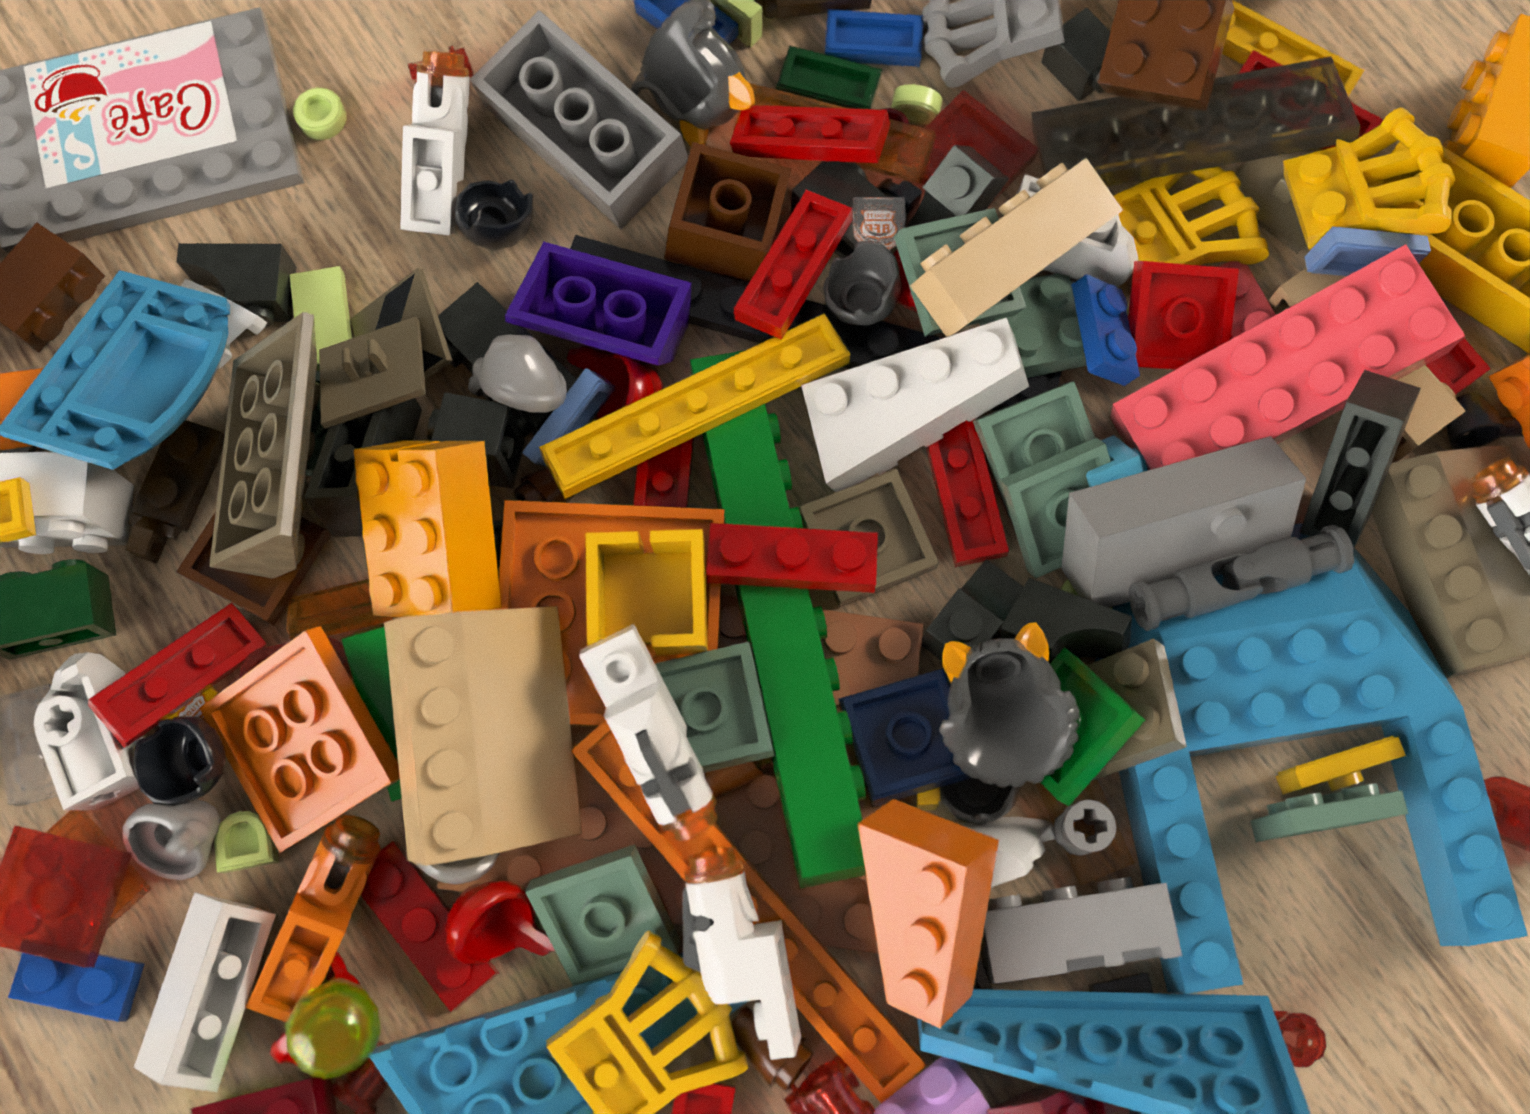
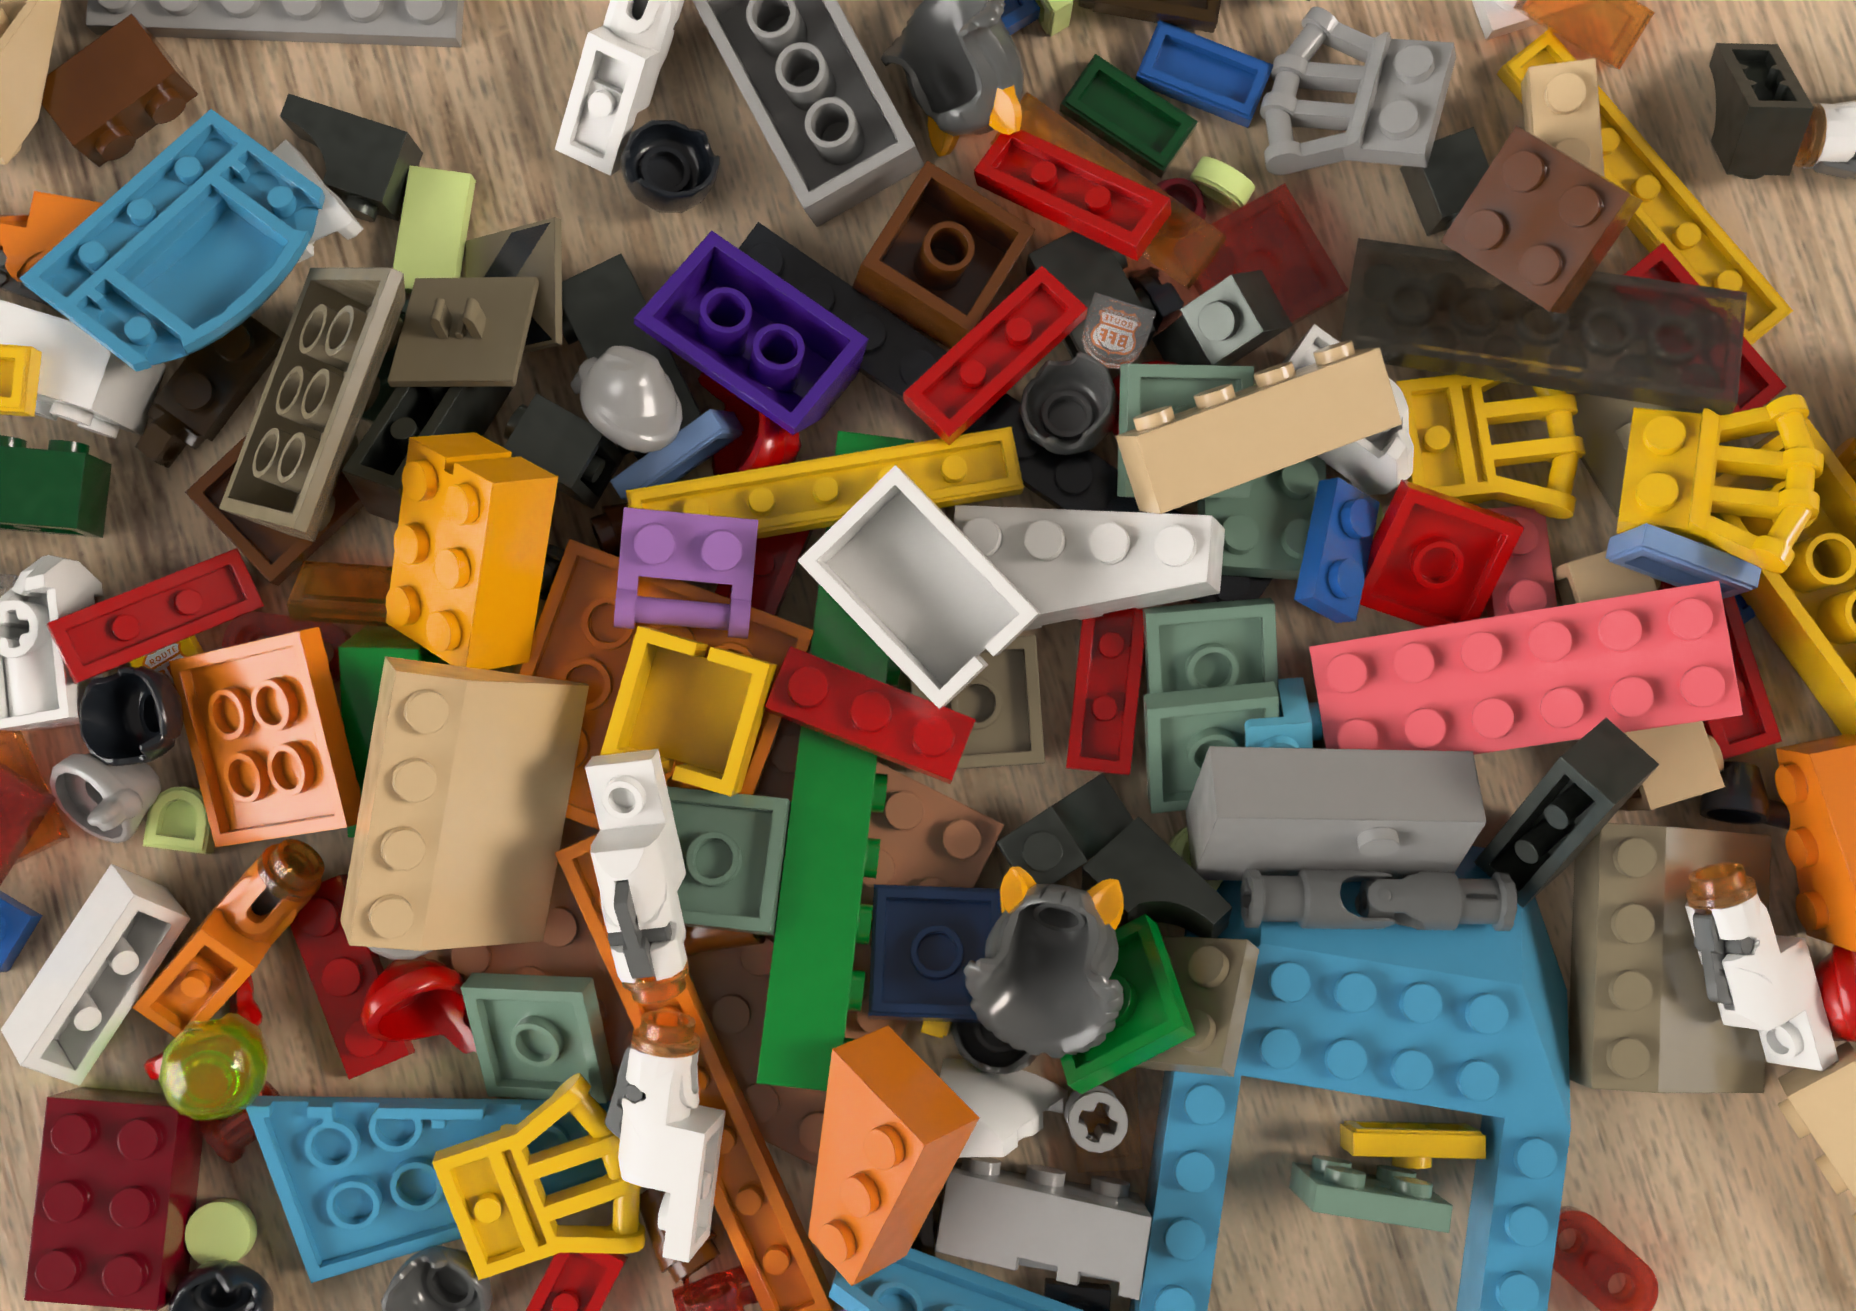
camera: 20 degrees right, 10 degrees up
(605, 473) = (688, 550): none -> medium lavender plate
(799, 439) = (918, 587): none -> white piece

